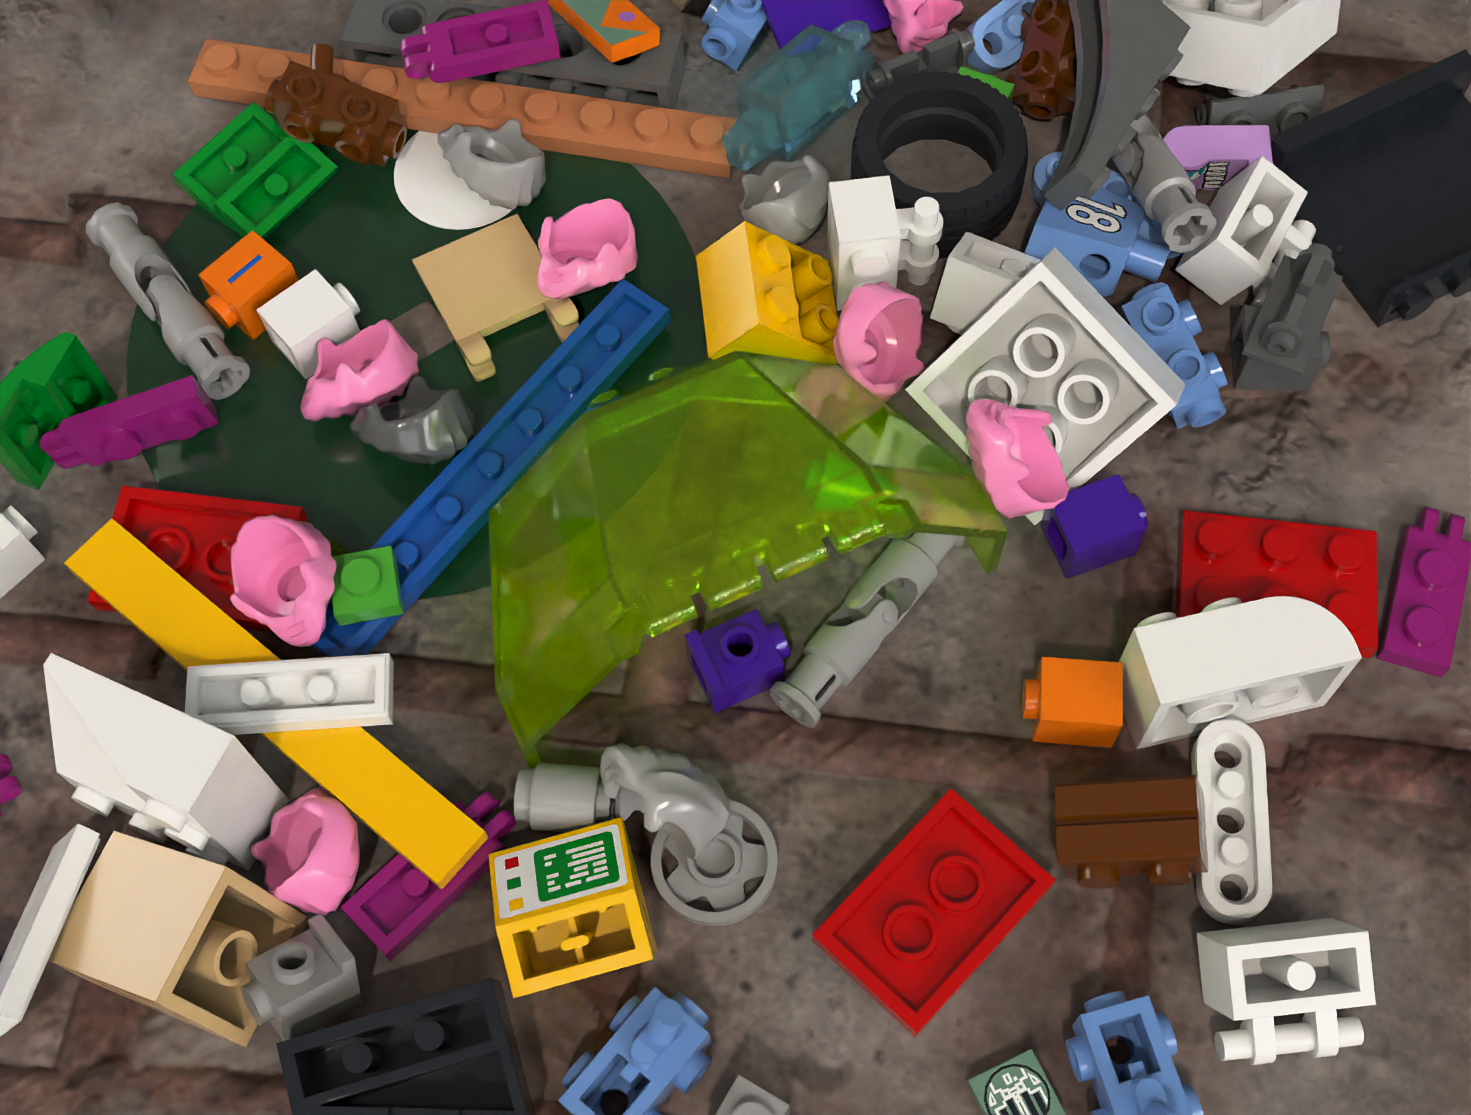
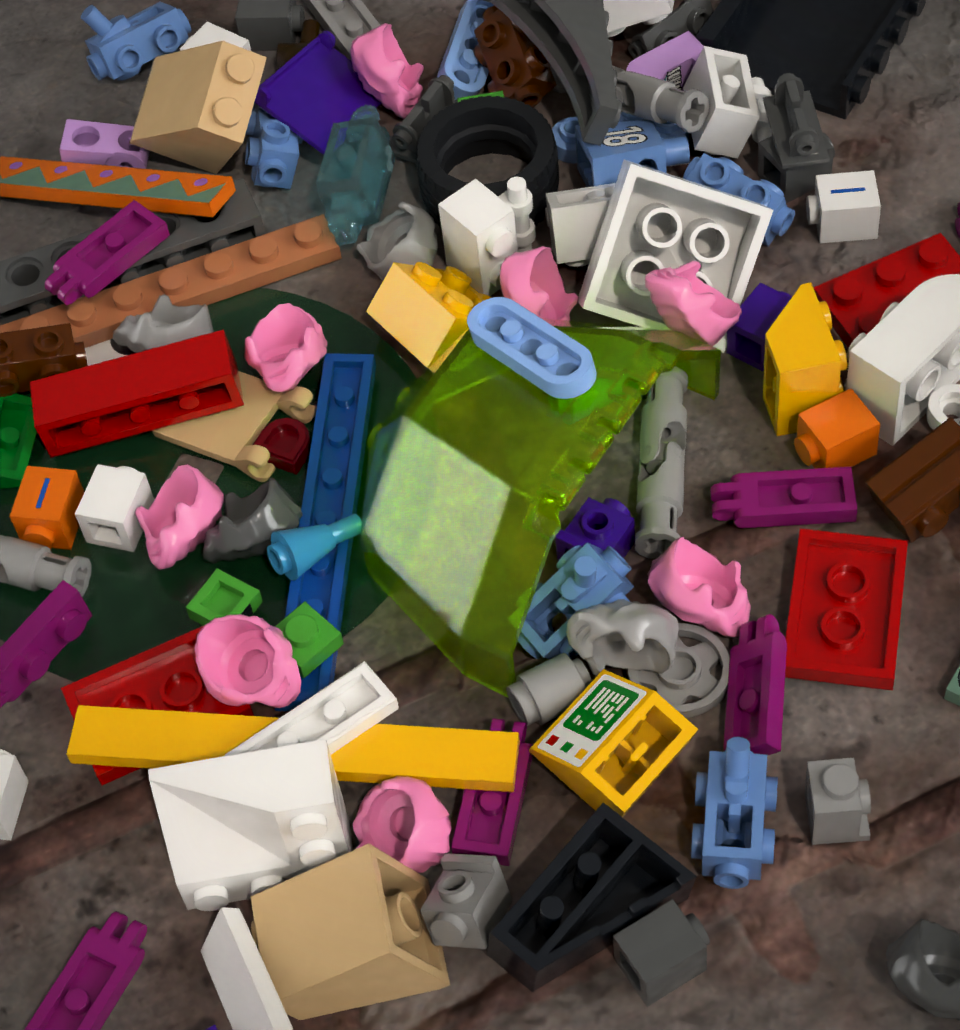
camera: 30 degrees left, 10 degrees down
(333, 493) = (221, 597): none -> bright green plate
(411, 213) = (139, 389): none -> red brick
(433, 485) = (299, 549): none -> dark azure cone
(519, 351) = (287, 443): none -> dark red tile
(670, 713) = (583, 580): none -> medium blue brick
(747, 399) = (532, 347): none -> light blue plate
(766, 943) = (757, 686): none -> magenta hinge
(795, 788) = (700, 588): none -> bright pink hair
(969, 741) = (786, 498): none -> magenta hinge
(1092, 594) = (801, 360): none -> yellow slope
(1289, 435) = (845, 207): none -> white brick

